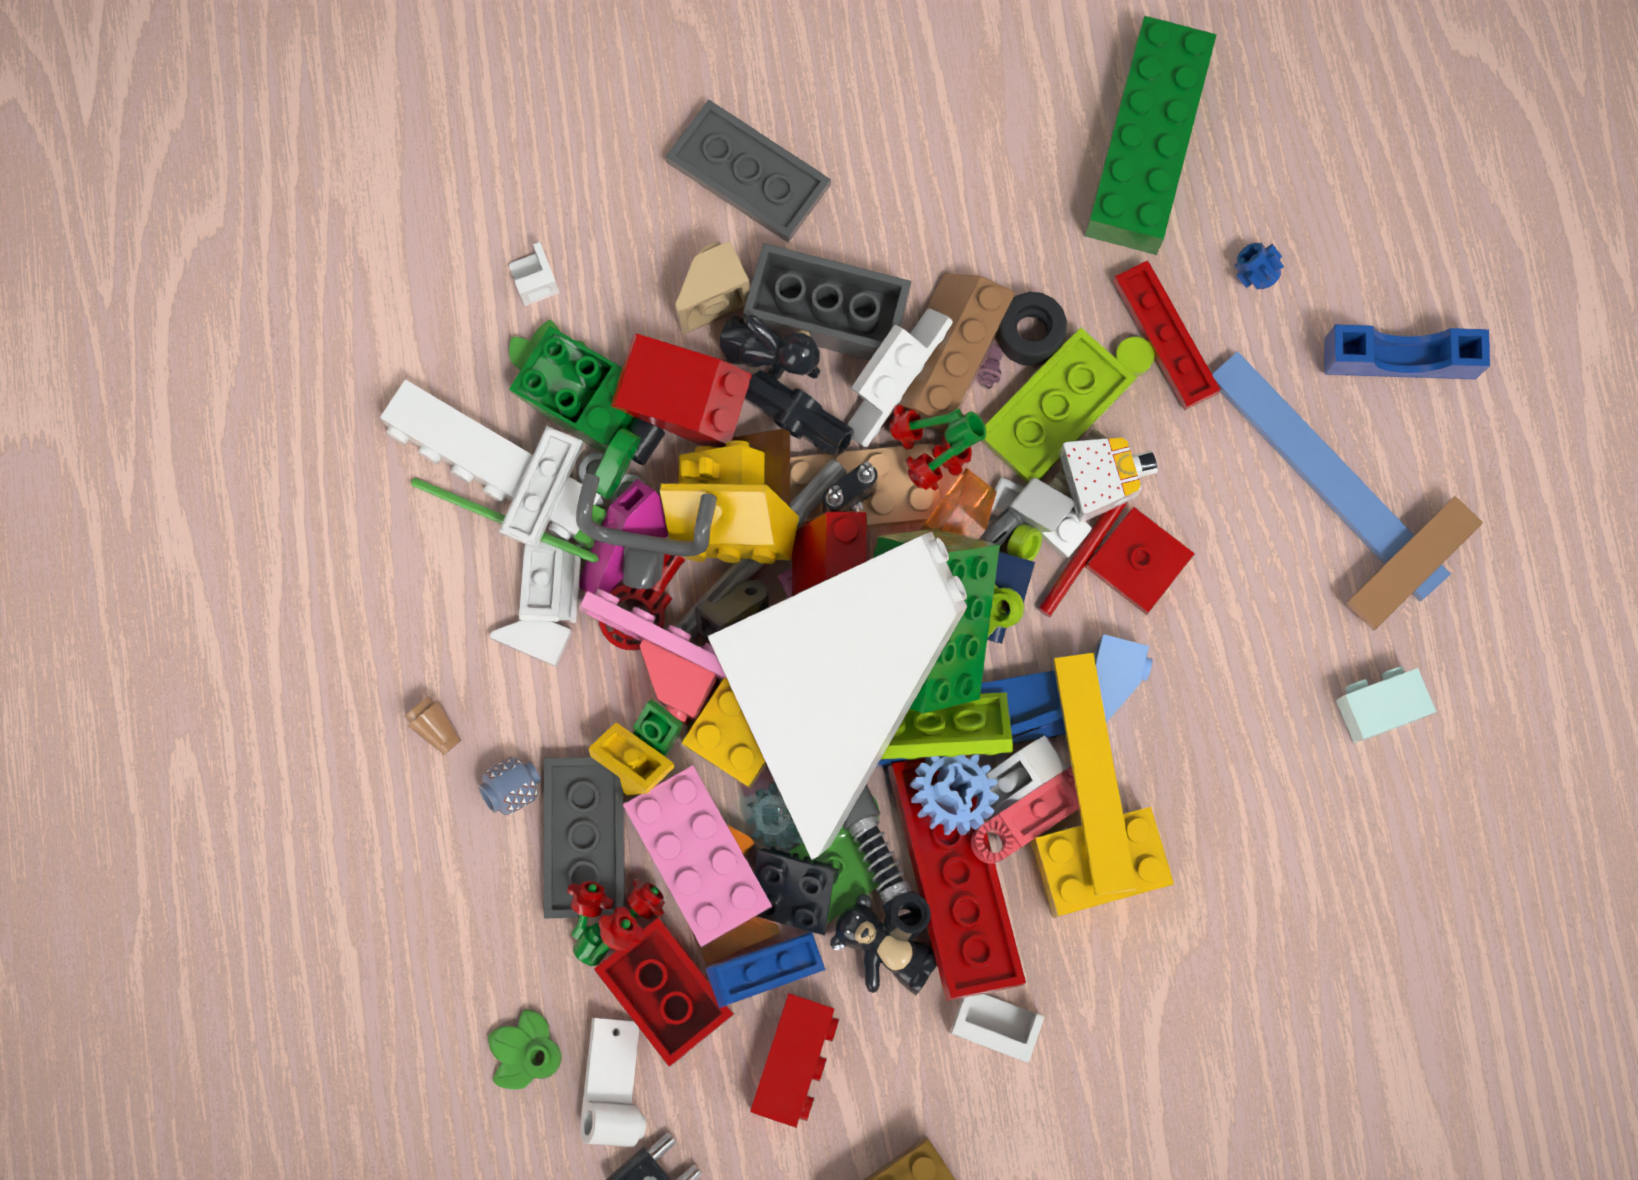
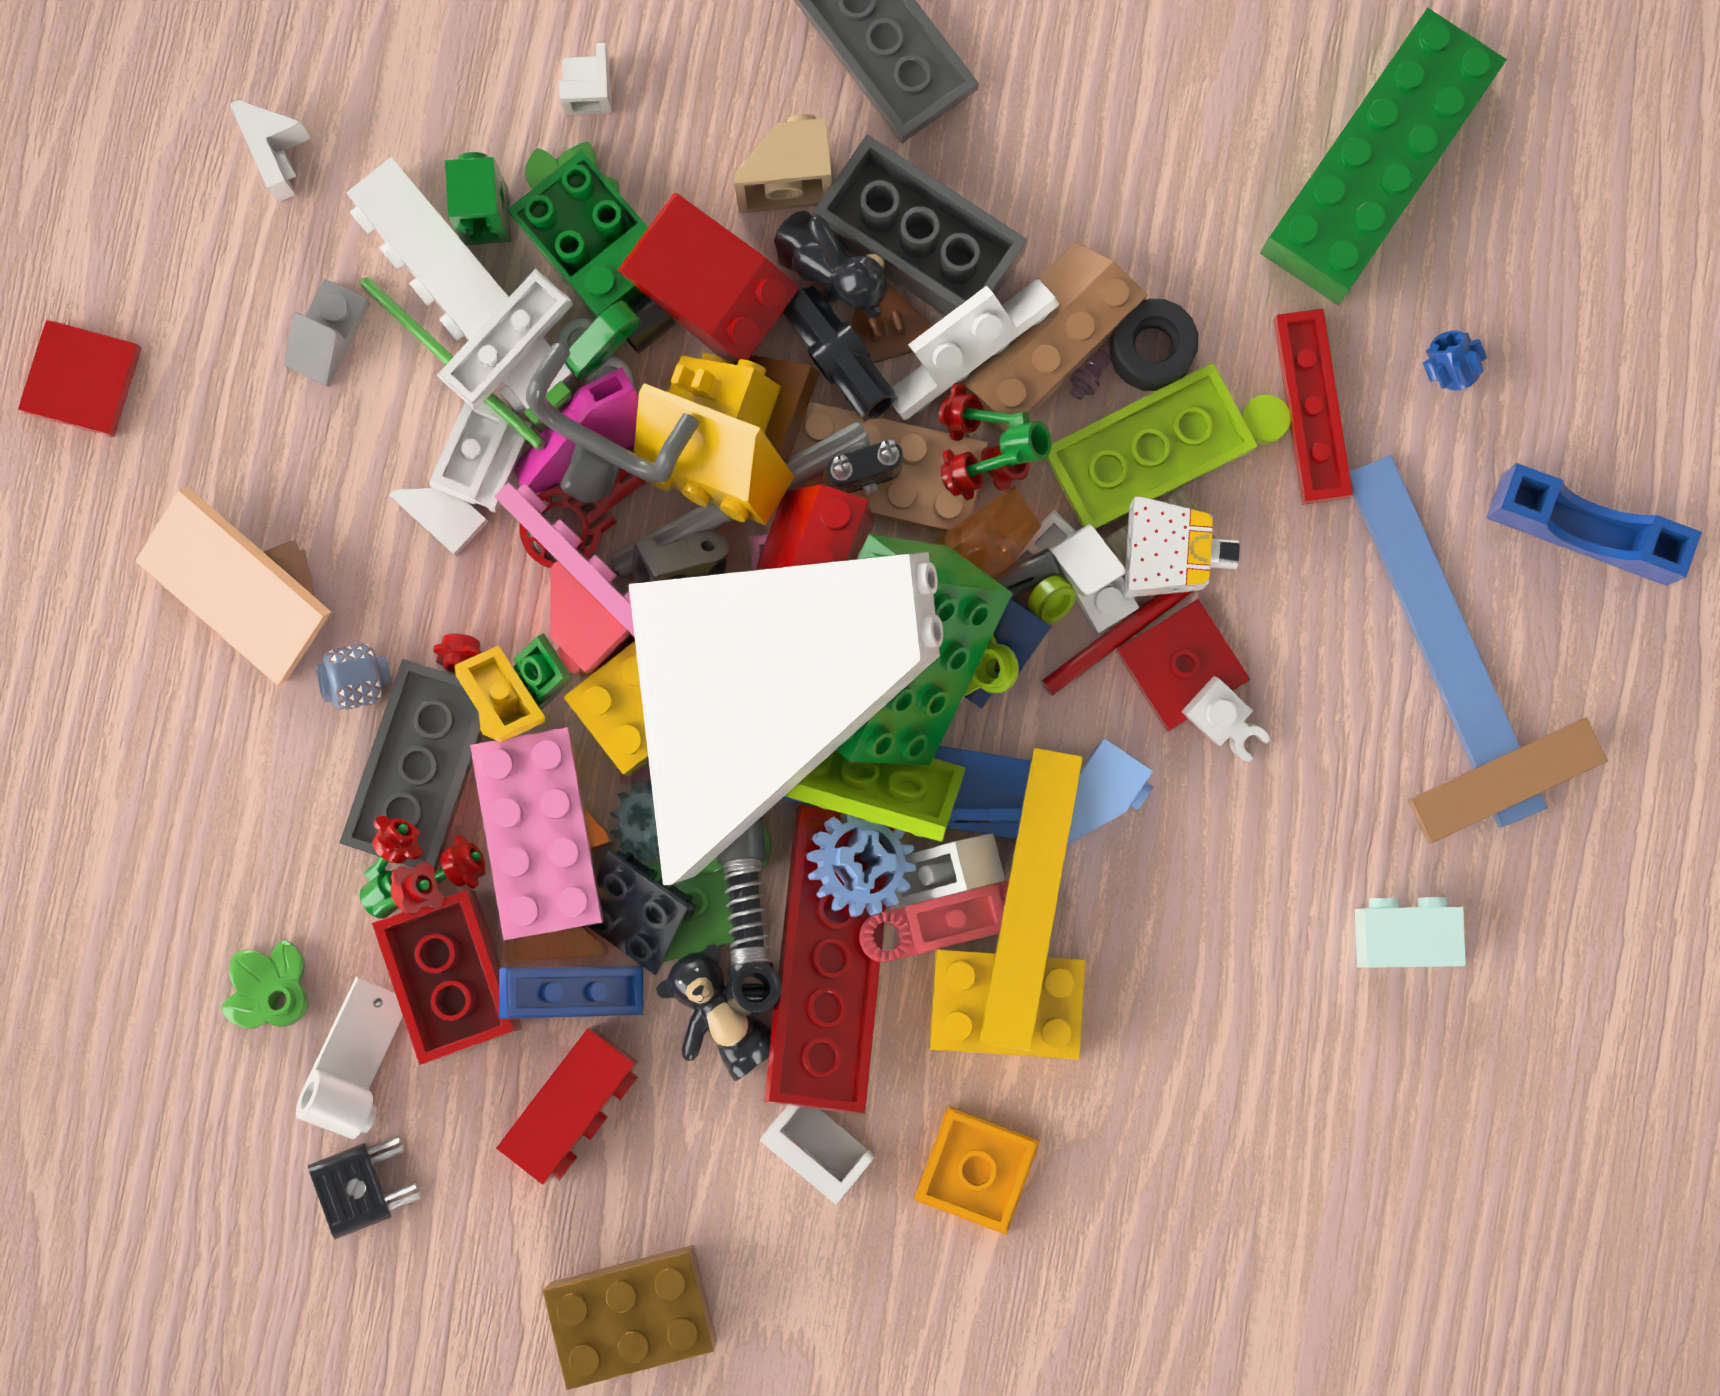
camera: 20 degrees right, 5 degrees up
(216, 629) = (79, 378): none -> red tile
(303, 396) = (268, 138): none -> white slope
(392, 747) = (233, 585): none -> light nougat tile
(396, 530) = (324, 334): none -> light grey slope
(483, 389) = (477, 199): none -> green brick
(582, 737) = (456, 649): none -> red plate
(832, 383) = (892, 330): none -> dark orange piece
(1124, 999) = (976, 1170): none -> light orange tile
(1184, 588) = (1222, 716): none -> white plate

